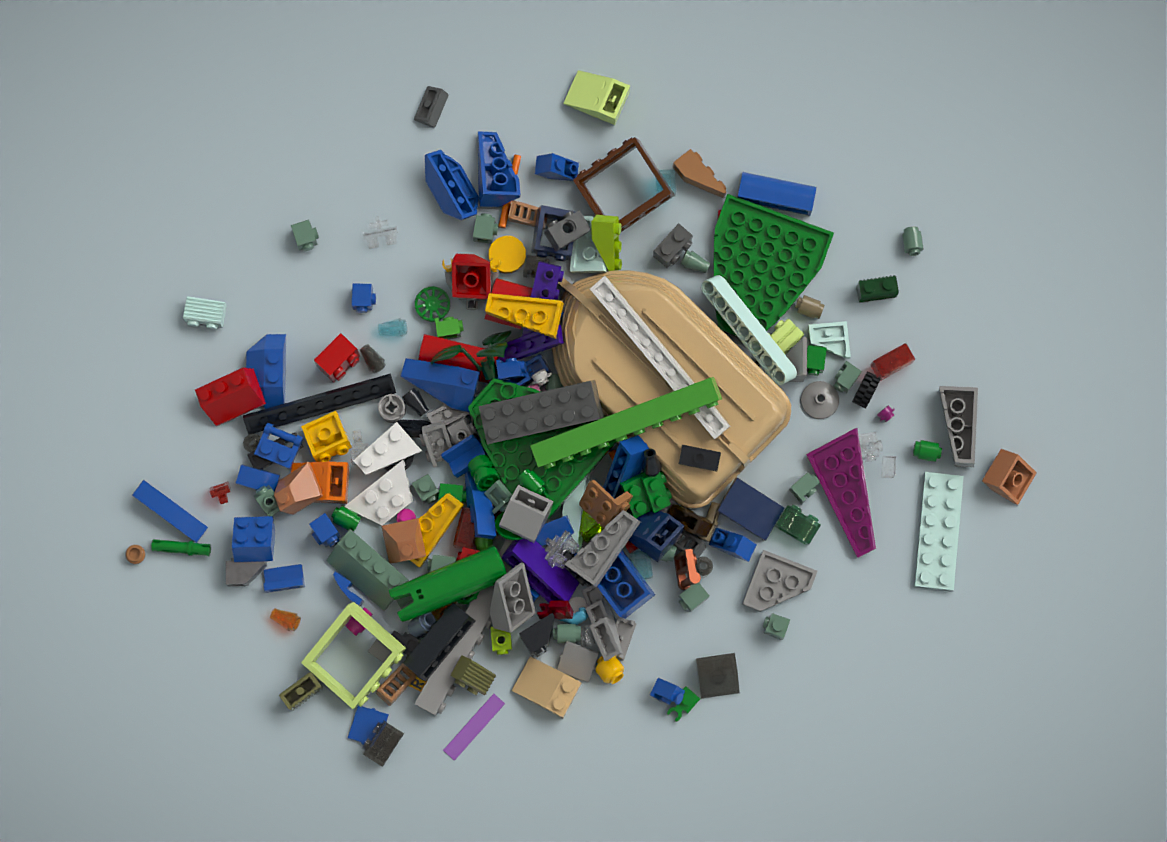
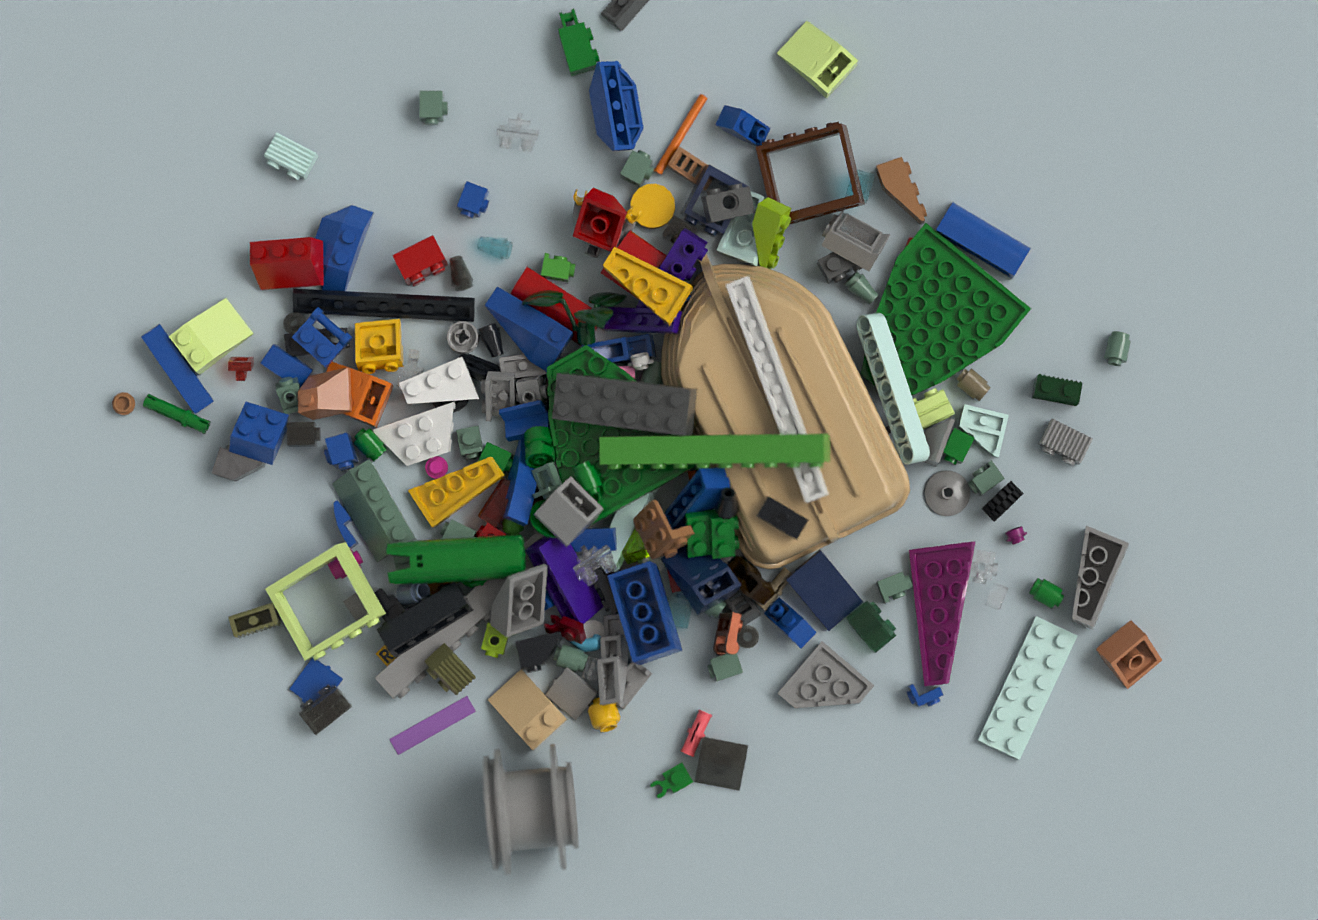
camera: 25 degrees right, 5 degrees up
(188, 476) = (211, 336): none -> yellowish green slope
(283, 578) = (278, 487): blue panel -> none
(286, 619) = (266, 535): clear orange cone -> none
(289, 528) = (303, 434): none -> clear smoke brick
(401, 688) = (359, 641): medium nougat slope -> none
(403, 149) = (577, 45): none -> green brick
(403, 541) = (424, 493): nougat slope -> none
(432, 303) = (549, 234): green wheel -> none
(495, 174) = (670, 114): blue wedge -> none
(510, 369) = (610, 340): blue brick -> none
(578, 763) = (529, 809): none -> light grey wheel
(598, 556) = (636, 584): light grey wing -> none
(667, 692) = (658, 762): blue brick -> none
(676, 225) = (854, 240): none -> light grey window
(688, 658) = (696, 732): none -> coral pin
(776, 626) = (805, 731): sand green brick -> none
(865, 565) = (930, 697): none -> blue bracket
(892, 361) = (1044, 479): clear red brick -> none
(898, 327) = (1065, 442): none -> light grey brick

